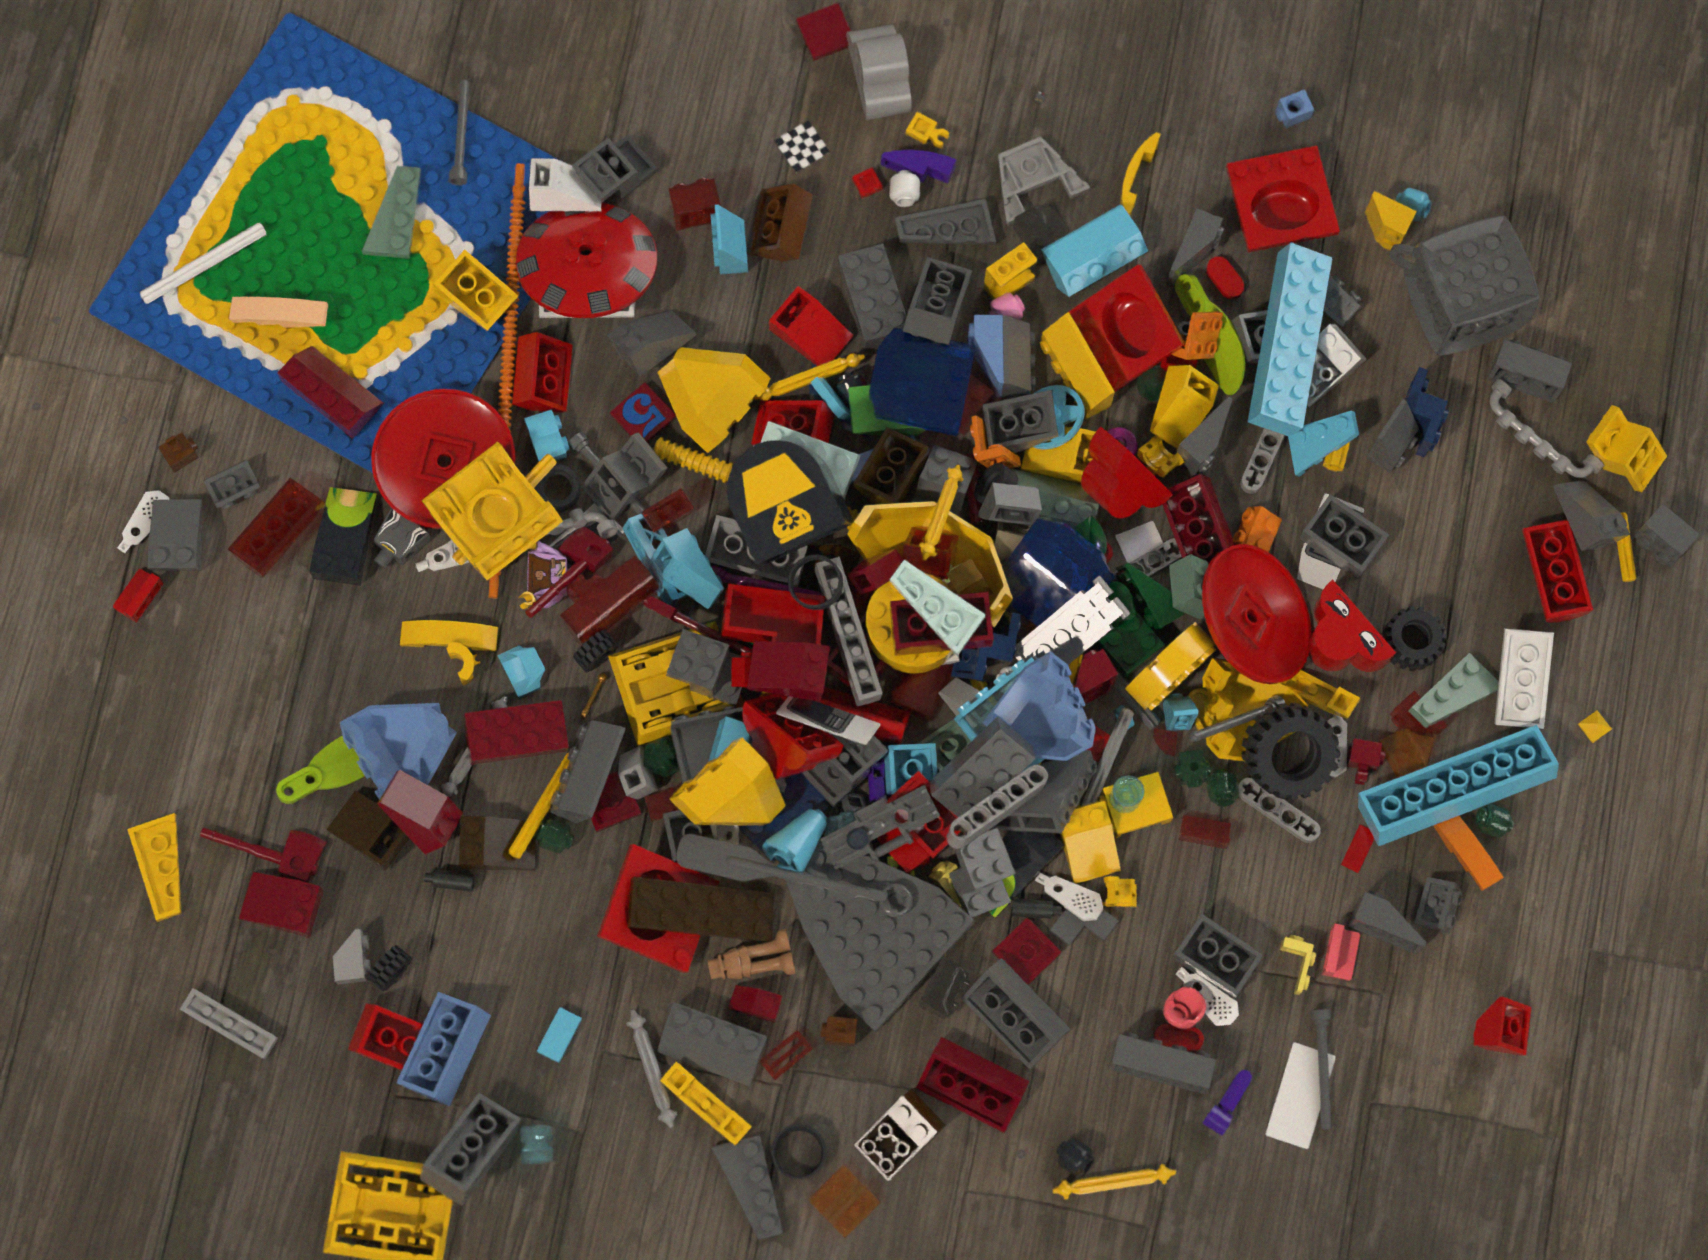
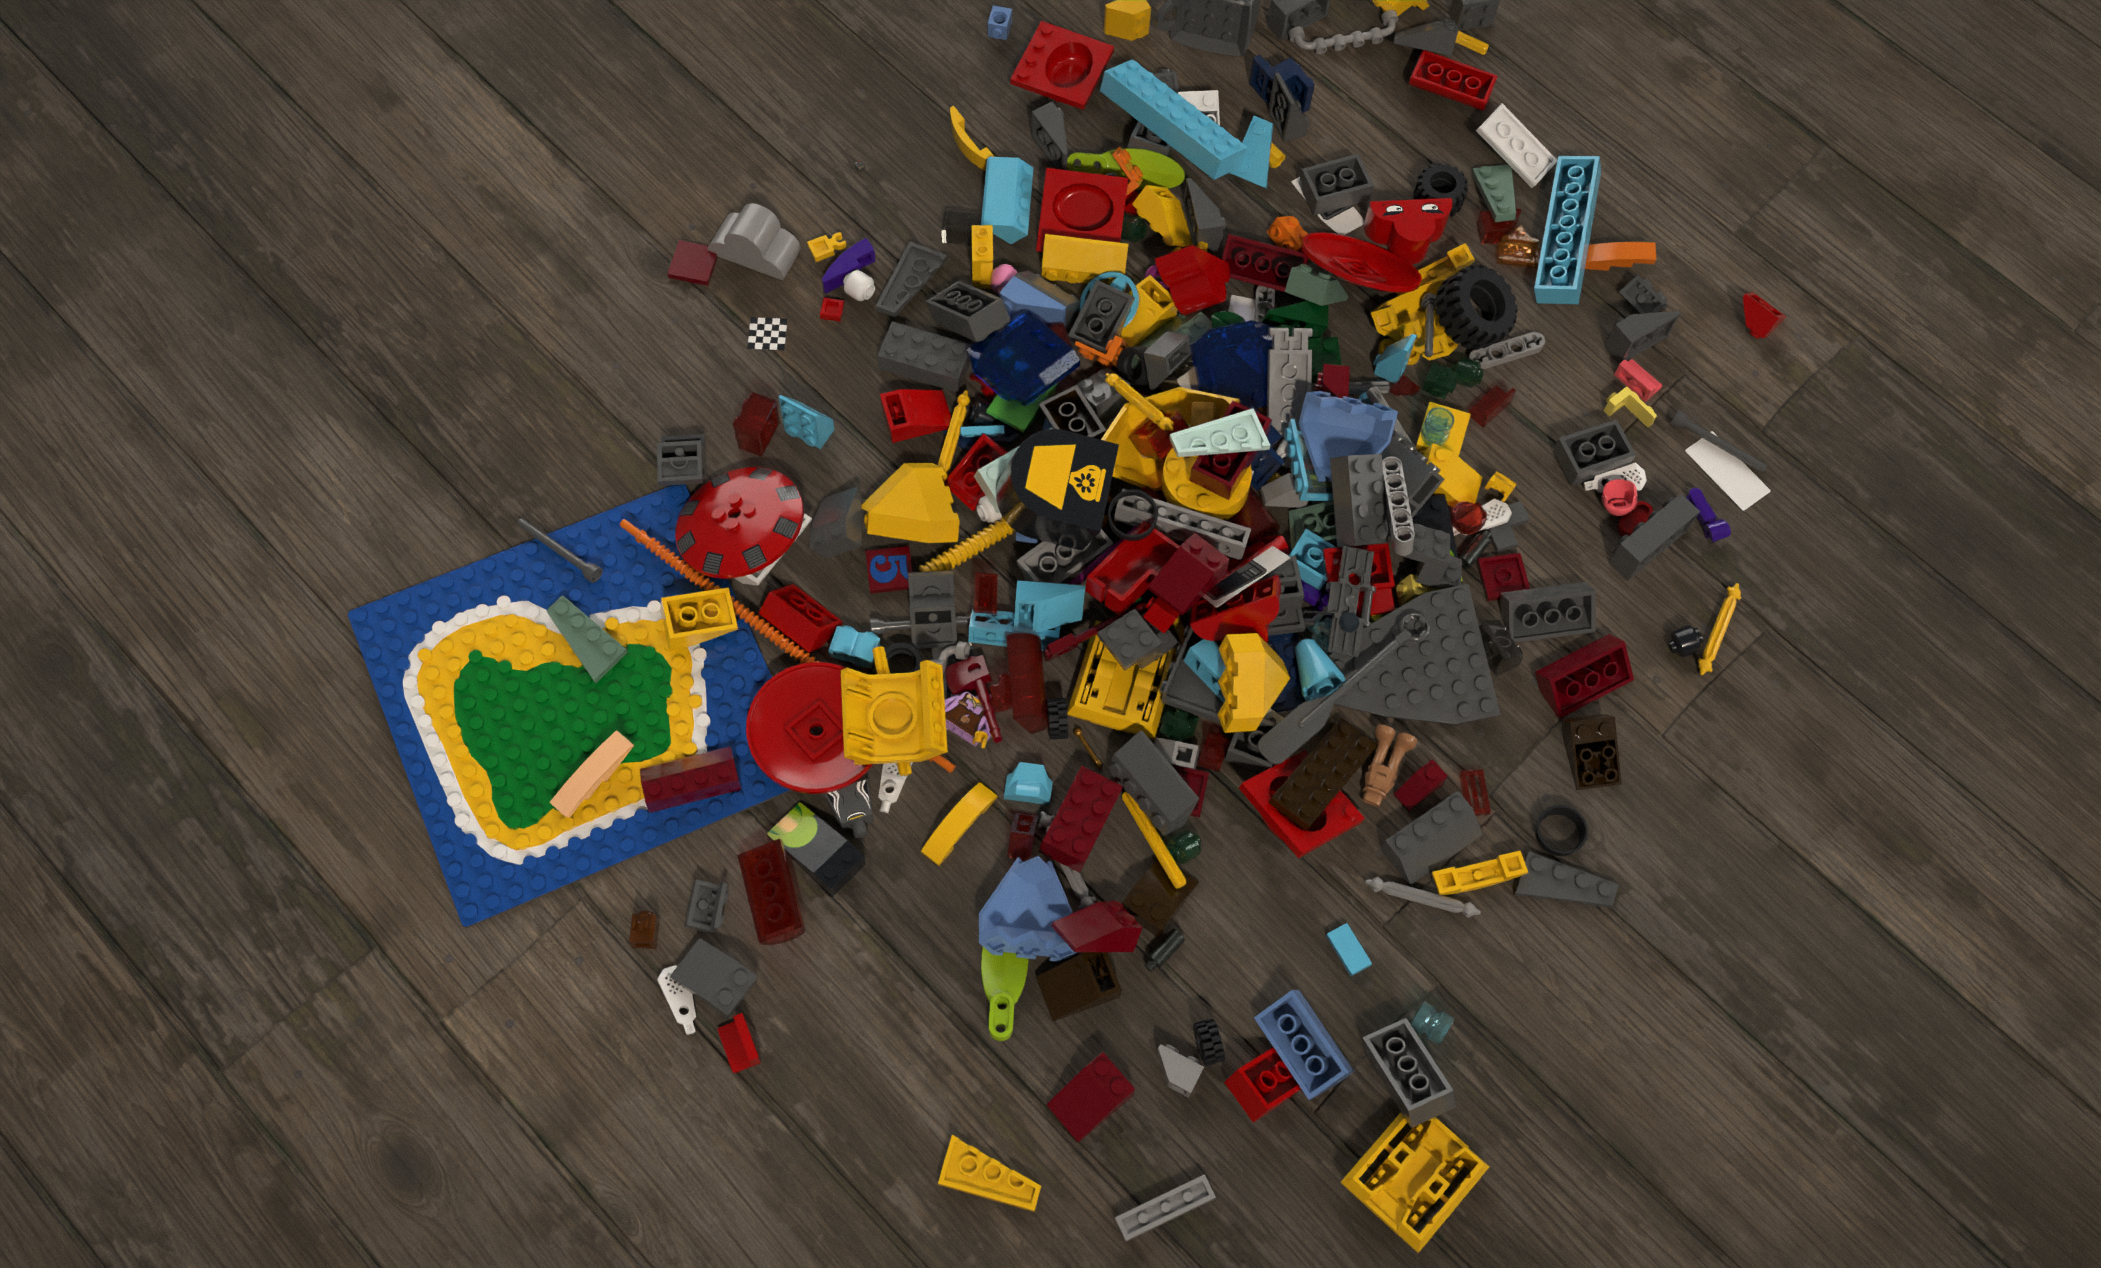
camera: 55 degrees left, 10 degrees down
(202, 263) = (501, 808): white axle -> none
(299, 855) = (1062, 1062): dark red piece -> none
(461, 652) = (991, 818): yellow piece -> none
(471, 695) = (1022, 836): none -> clear red slope
(558, 188) = (665, 506): white slope -> none
(780, 223) = (816, 380): reddish brown slope -> none
(839, 1031) = (1483, 740): reddish brown brick -> none
(844, 1201) = (1619, 824): clear orange slope -> none
(875, 571) = (1151, 472): dark red slope -> none
(1032, 167) = (908, 203): light grey wing -> none
(1055, 880) = (1468, 517): none -> clear red hair
(1171, 667) = (1362, 337): yellow brick -> none
(1225, 277) = (1087, 139): red tile -> none
(1260, 450) = (1237, 193): light grey beam -> none
(1358, 849) = (1567, 322): red sticker -> none
(1364, 756) = (1509, 270): dark red brick -> none
(1494, 820) = (1605, 227): clear green head -> none
(1594, 726) = (1575, 133): yellow slope -> none

